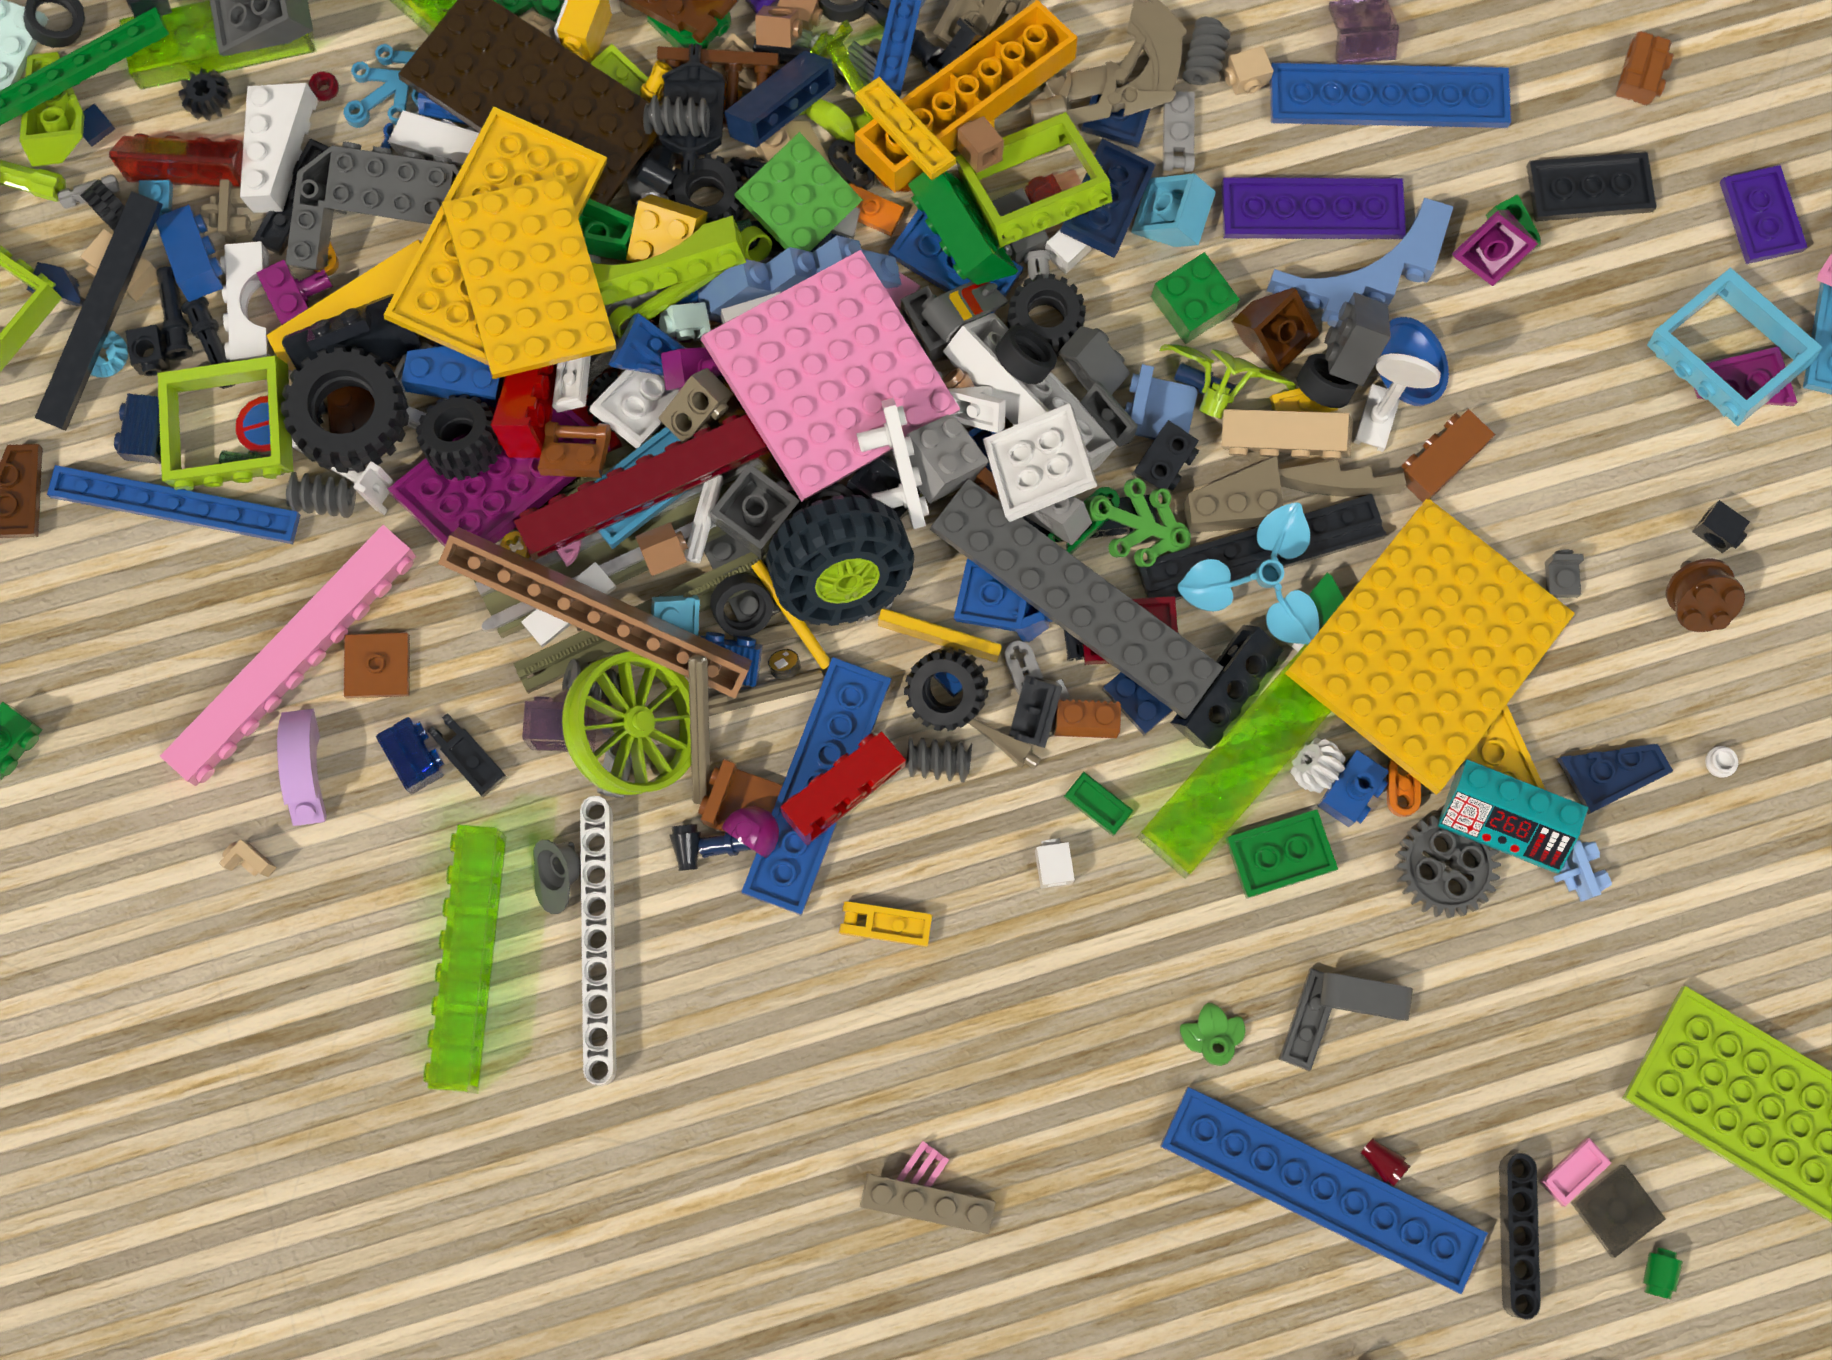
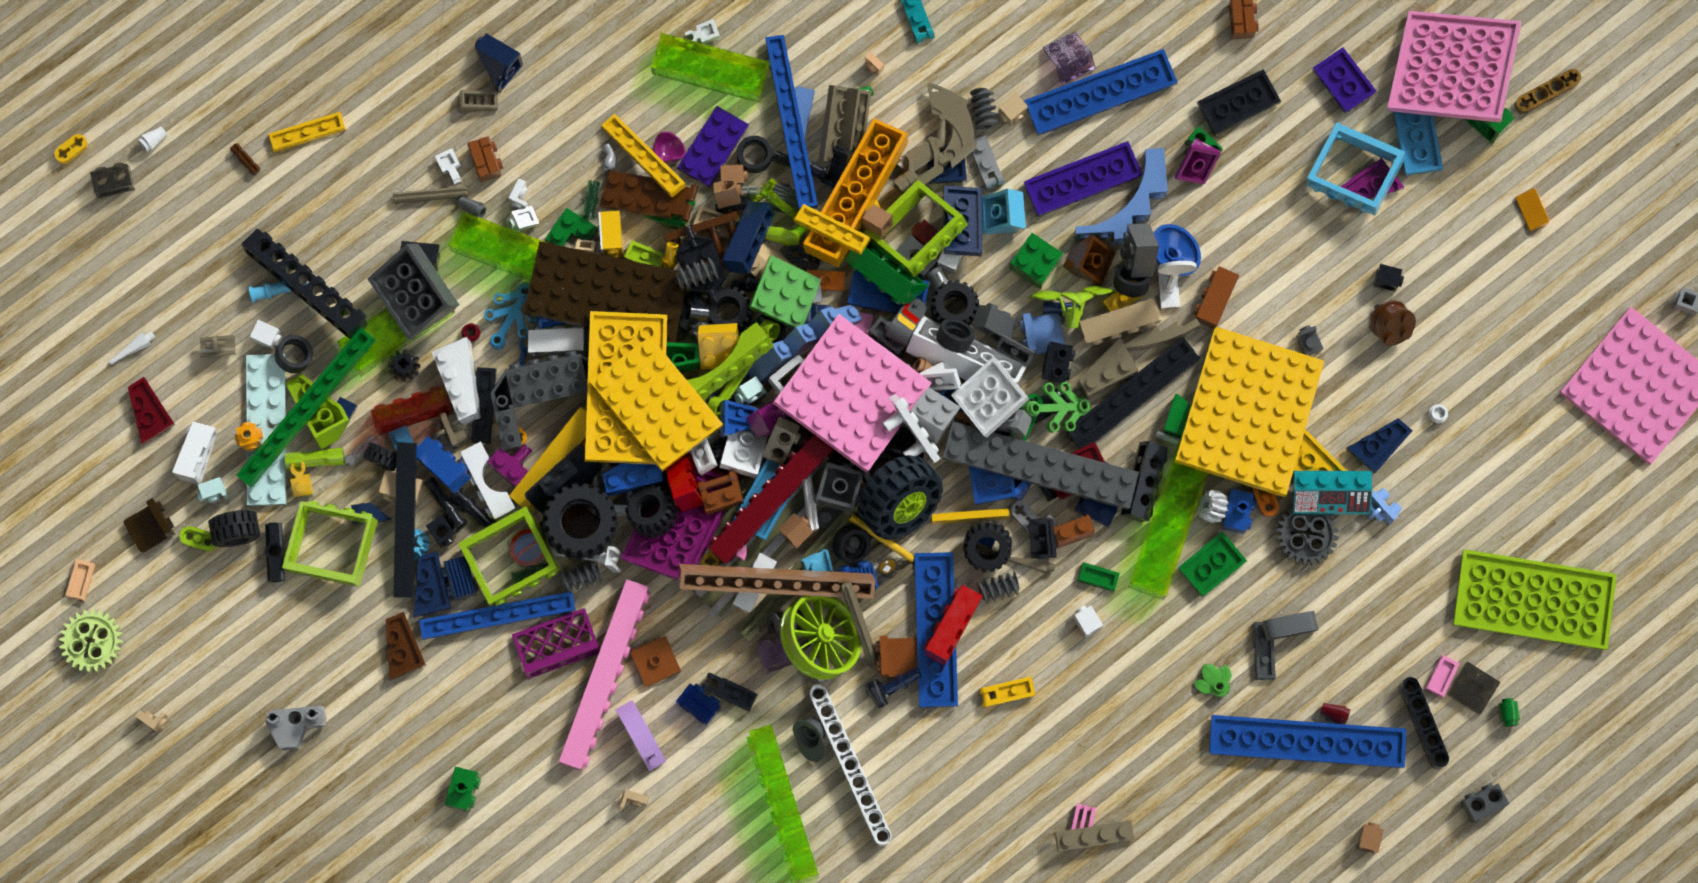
camera: 20 degrees left, 0 degrees up
(93, 431) = (431, 588): none -> dark blue wing
(236, 605) = (562, 658): none -> magenta fence
(754, 828) = (911, 667): magenta helmet -> none
(1285, 534) = (1141, 381): medium azure plant -> none

